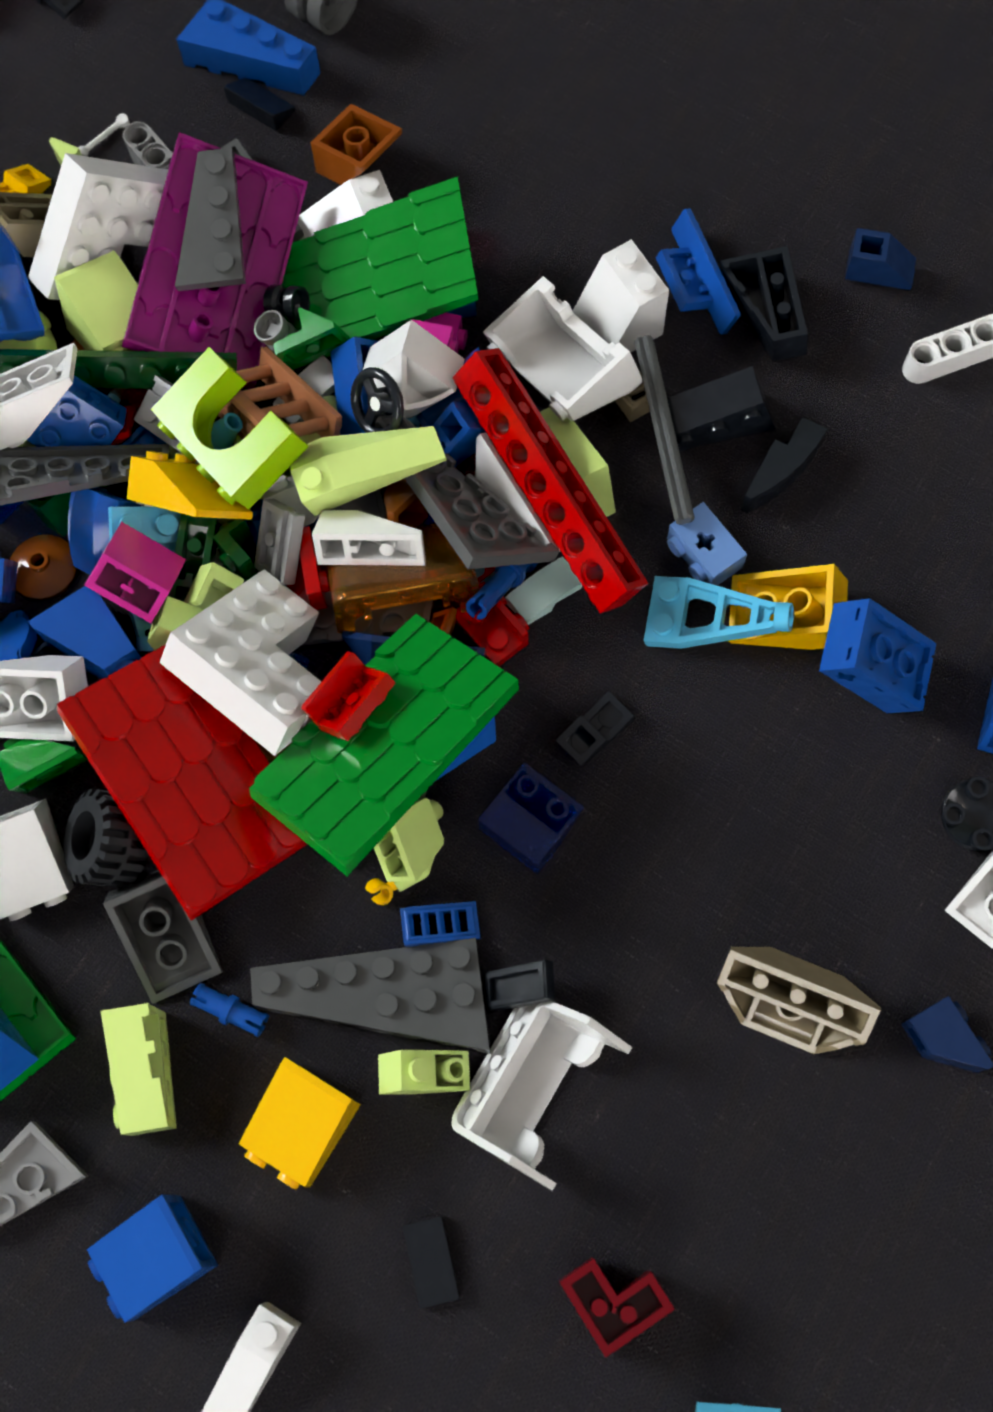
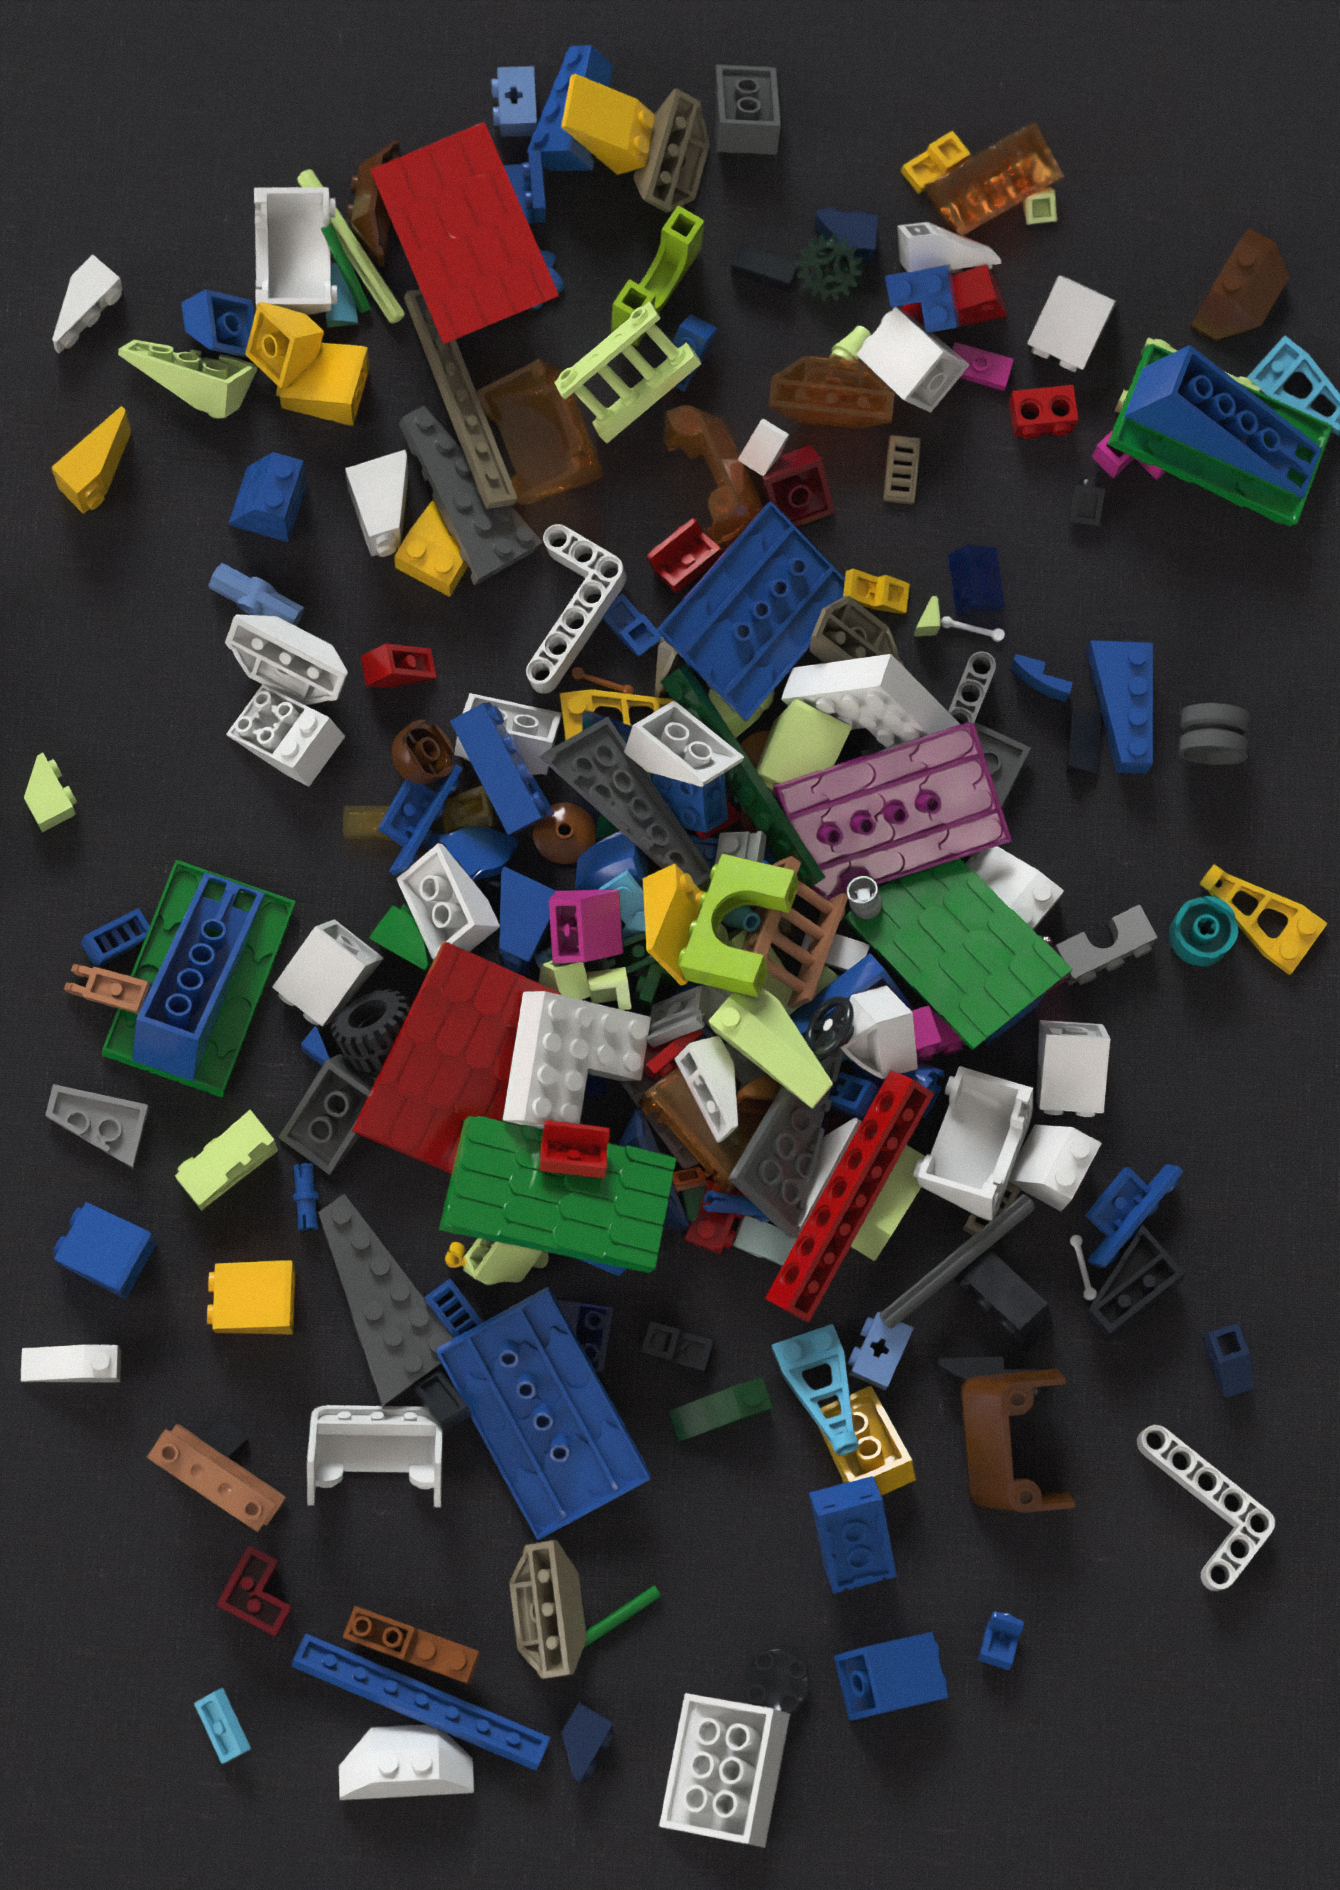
camera: 45 degrees right, 5 degrees up
(60, 109) = (976, 578): none -> clear blue bracket
(86, 913) = (314, 1047): none -> blue slope
(175, 107) = (1031, 673): none -> blue slope
(212, 231) = (911, 799): dark grey wing -> none
(286, 300) = (895, 891): black wheel -> none
(313, 341) = (874, 933): green slope -> none
(351, 144) = (1076, 854): dark orange slope -> none
(423, 1072) = (340, 1367): yellowish green slope -> none
(450, 150) = (1131, 935): none -> light grey arch
(465, 633) = (691, 1201): none -> dark green slope
(465, 1276) = (216, 1477): none -> nougat fence
(486, 88) = (1219, 938): none -> teal brick
(534, 30) = (1294, 940): none -> yellow plate
(541, 244) = (1072, 1067): none -> white slope
(591, 889) = (543, 1413): none -> blue piece
(681, 720) = (721, 1409): none -> dark green slope
(751, 348) = (1089, 1293): none -> white hinge
(756, 1162) = (411, 1645): none -> dark orange slope
(819, 1189) = (420, 1702): none -> blue plate
(833, 927) = (621, 1615): none -> green bar
(852, 488) = (986, 1413): none -> reddish brown windscreen
(878, 1243) = (405, 1763): none -> white wedge

